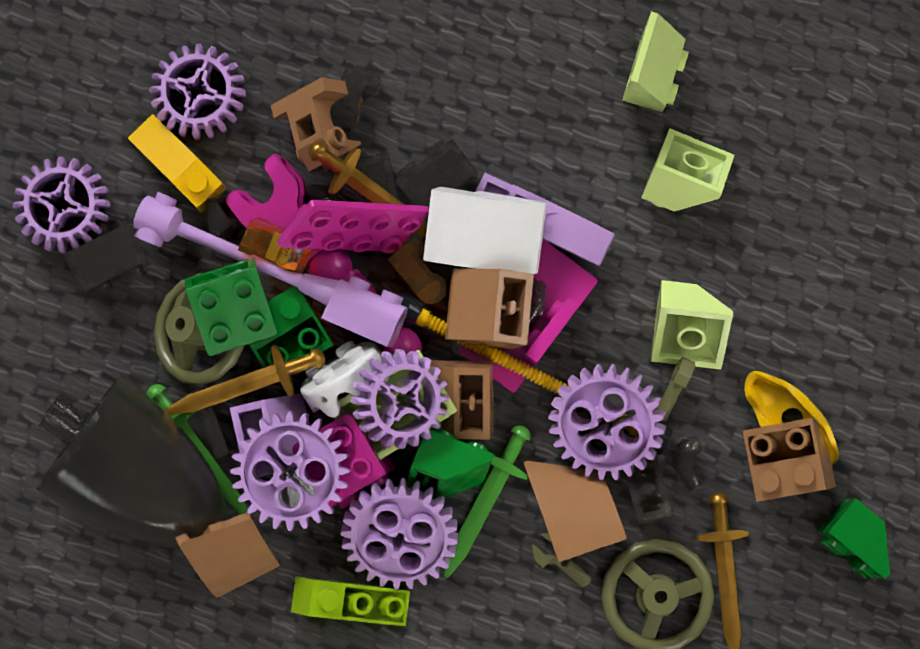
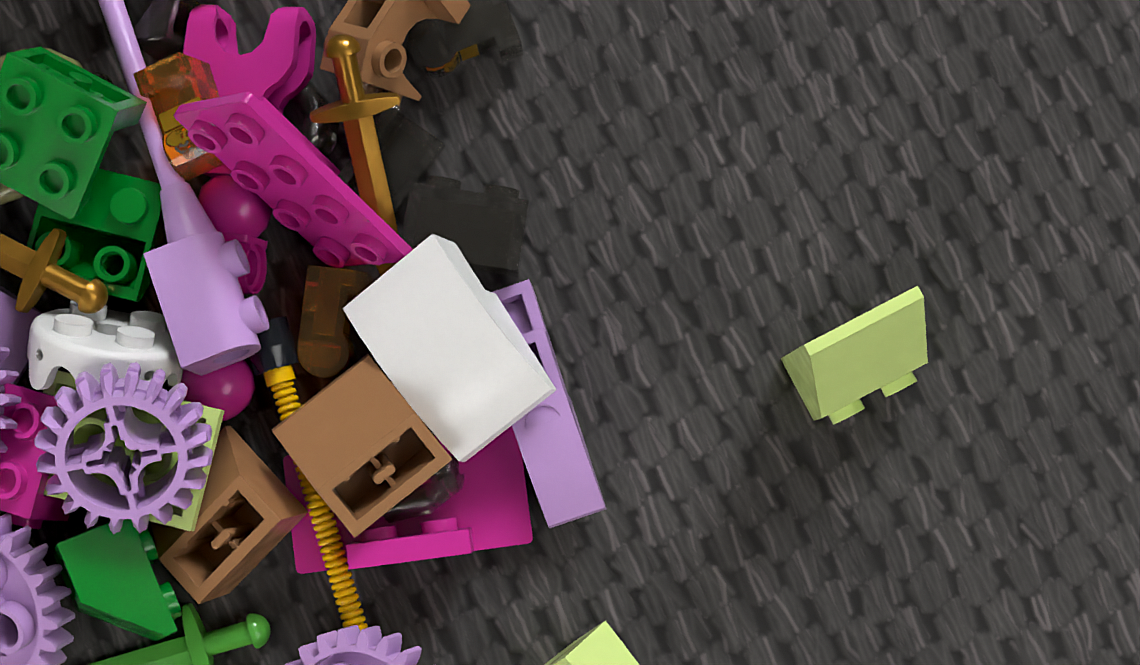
camera: 45 degrees right, 0 degrees up
(687, 173) = (768, 524): yellowish green slope -> none

